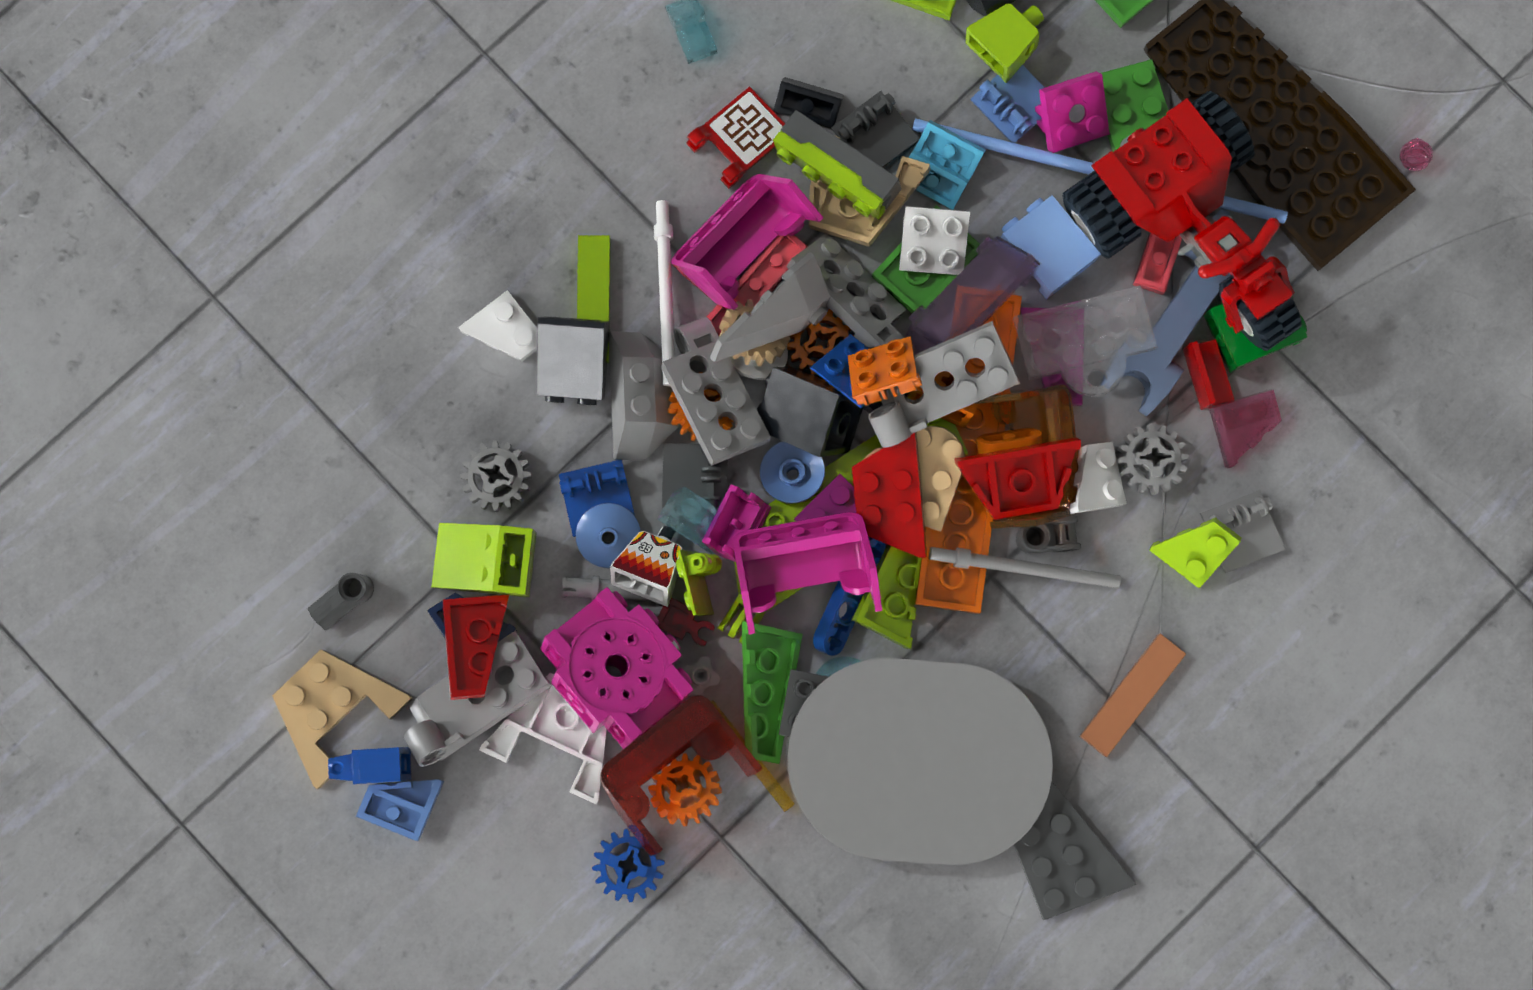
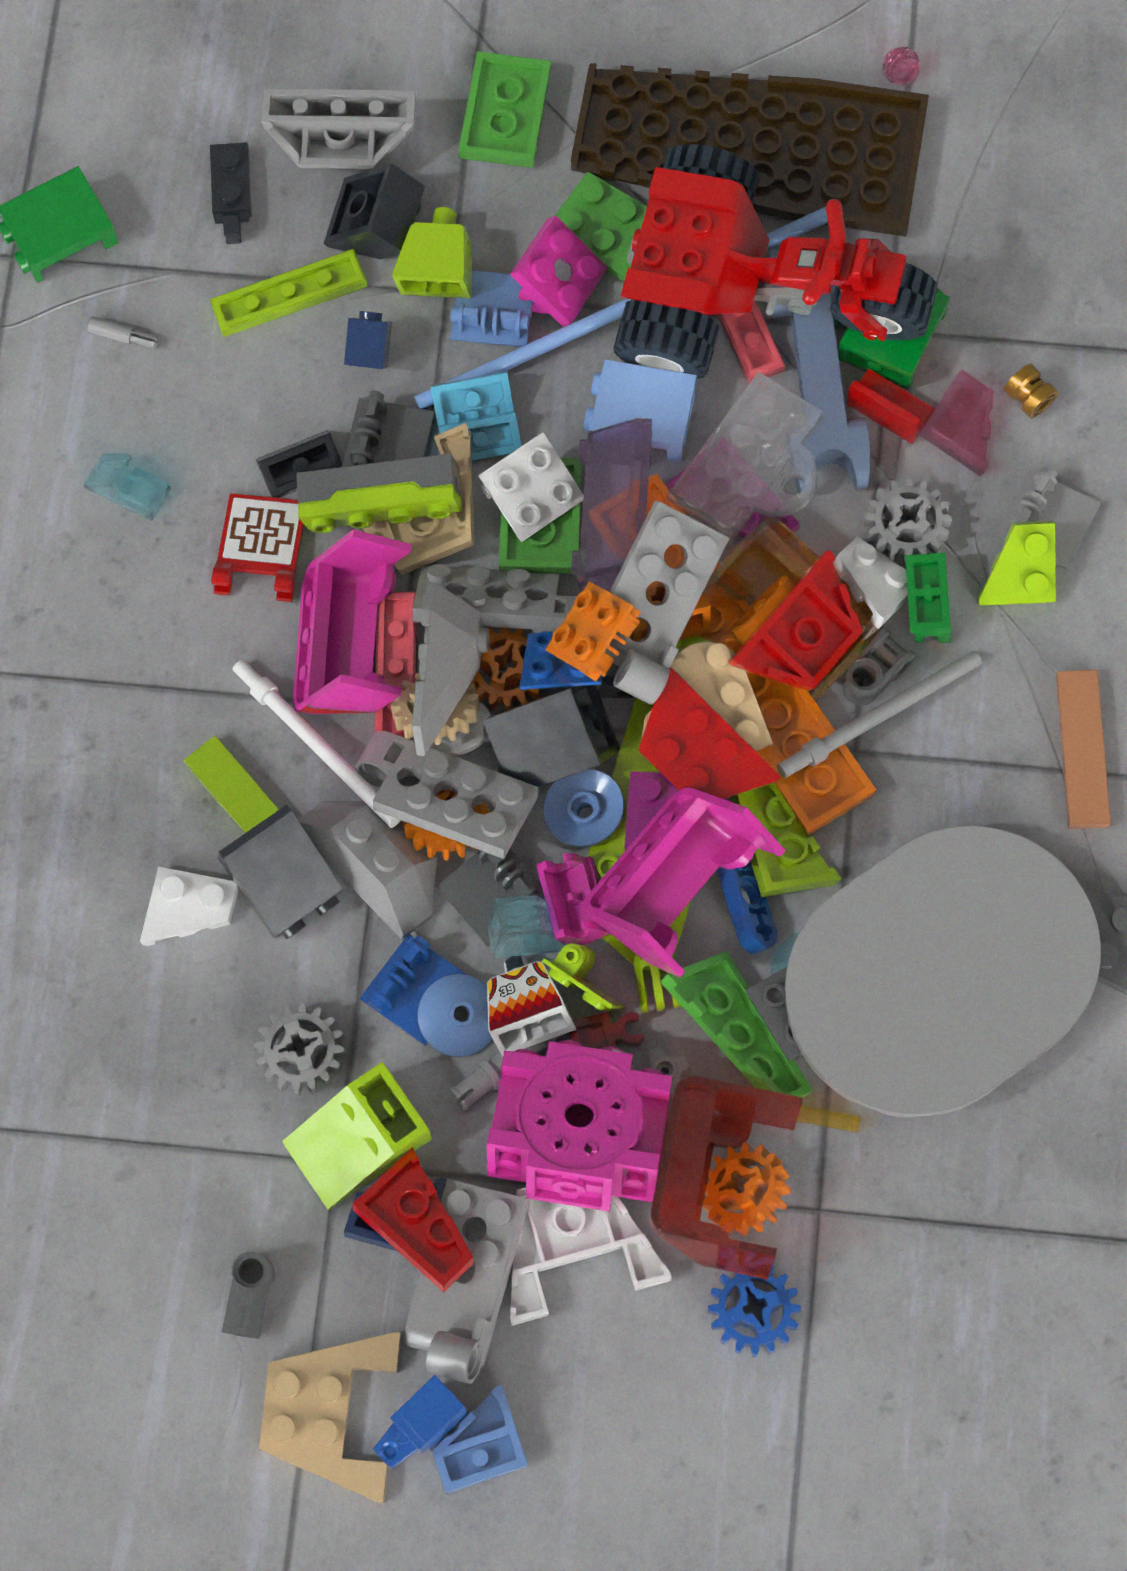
camera: 30 degrees left, 10 degrees down
(915, 58) = (368, 341): none -> dark blue brick
(1120, 518) = (928, 596): none -> green hinge
(1305, 440) = (1031, 391): none -> pearl gold wheel

